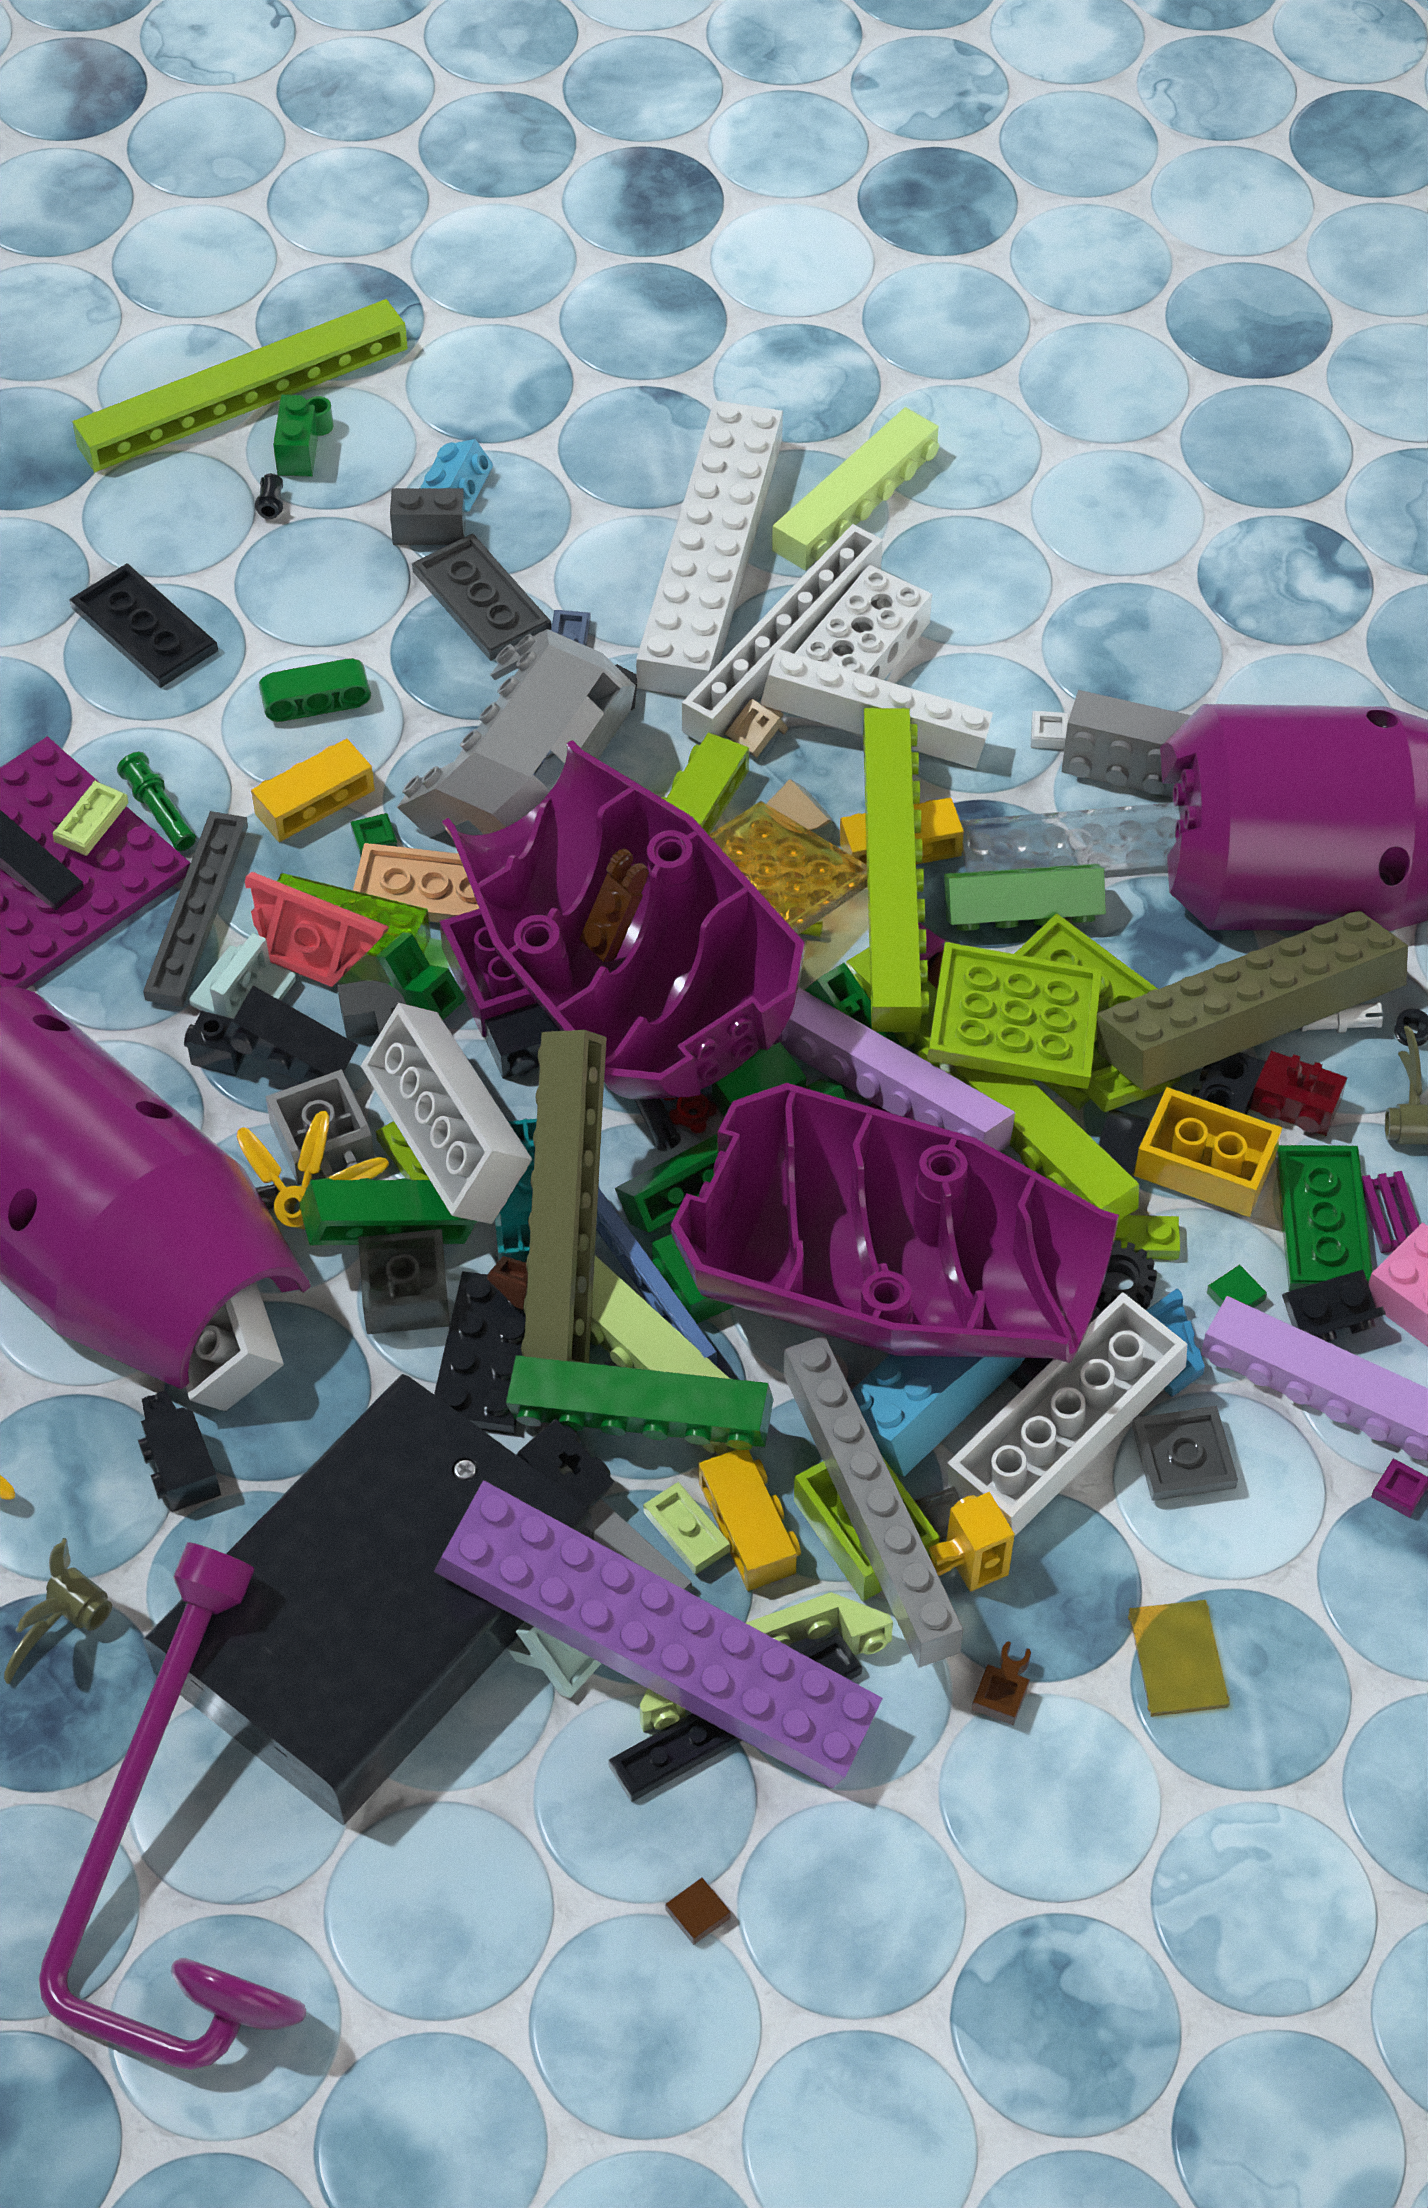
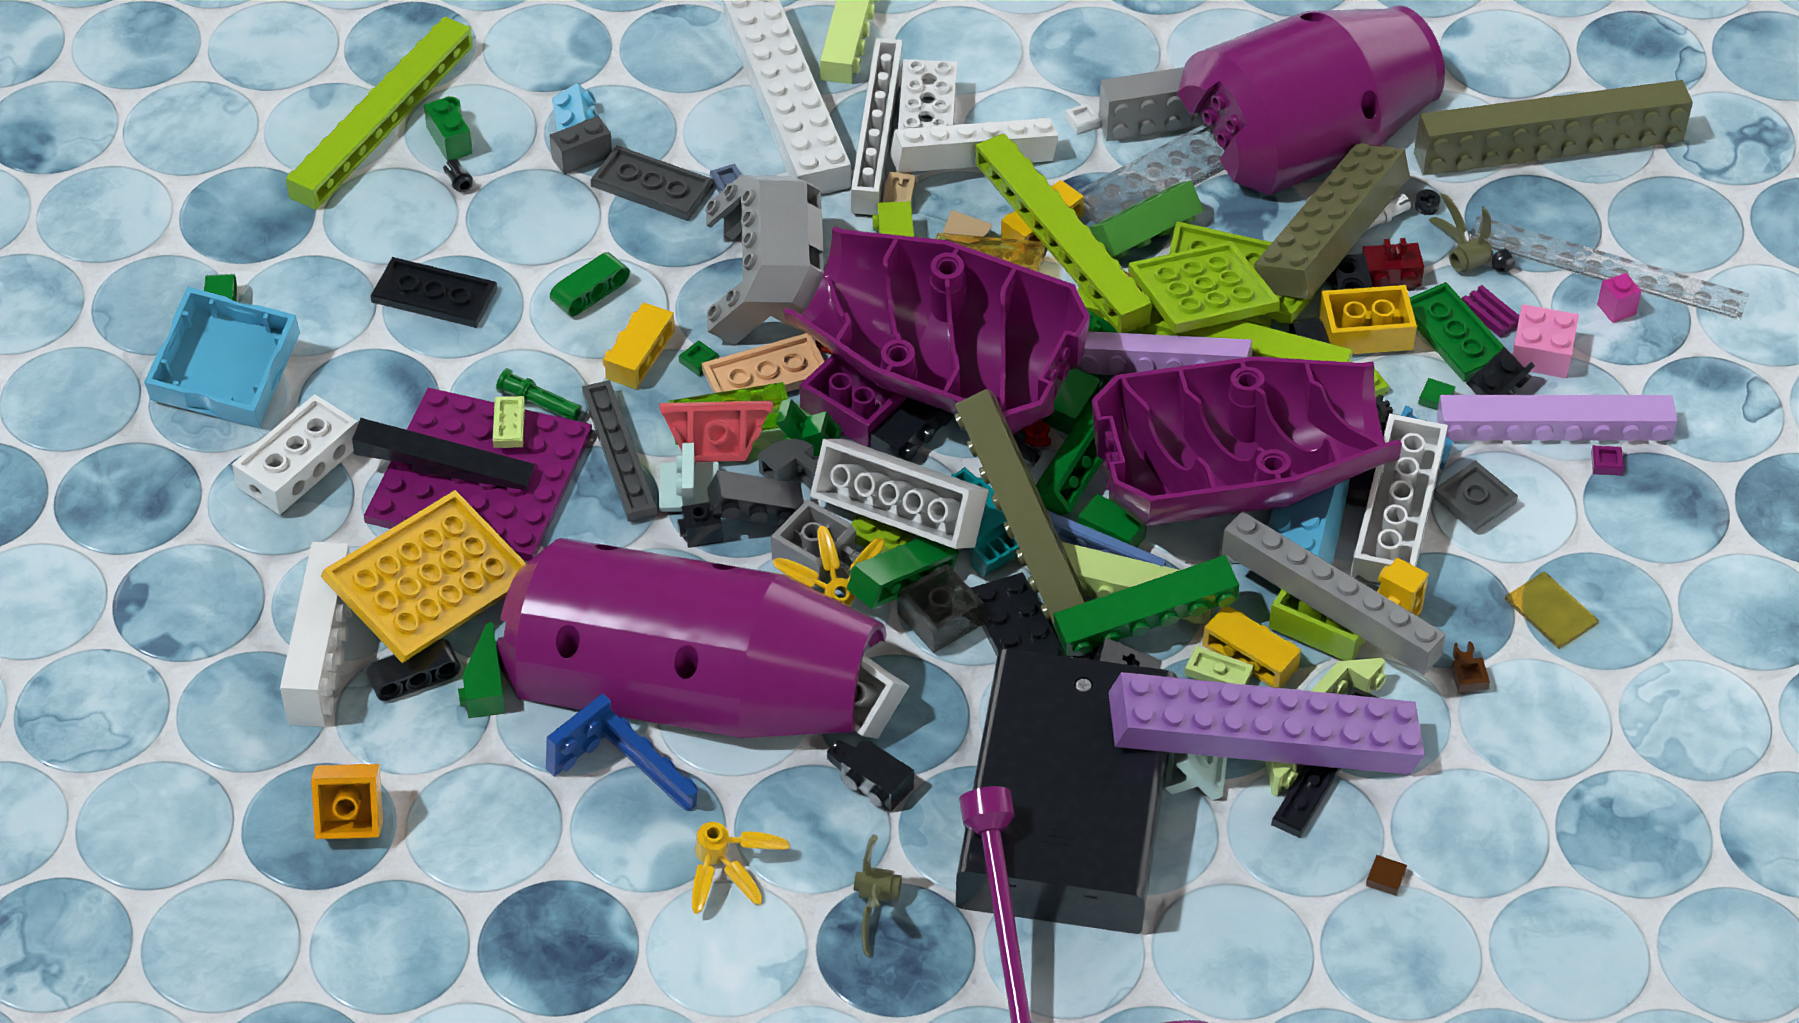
camera: 30 degrees left, 5 degrees down
(510, 1279) = (1009, 575): copper slope -> none
(615, 906) = (927, 319): reddish brown hinge -> none

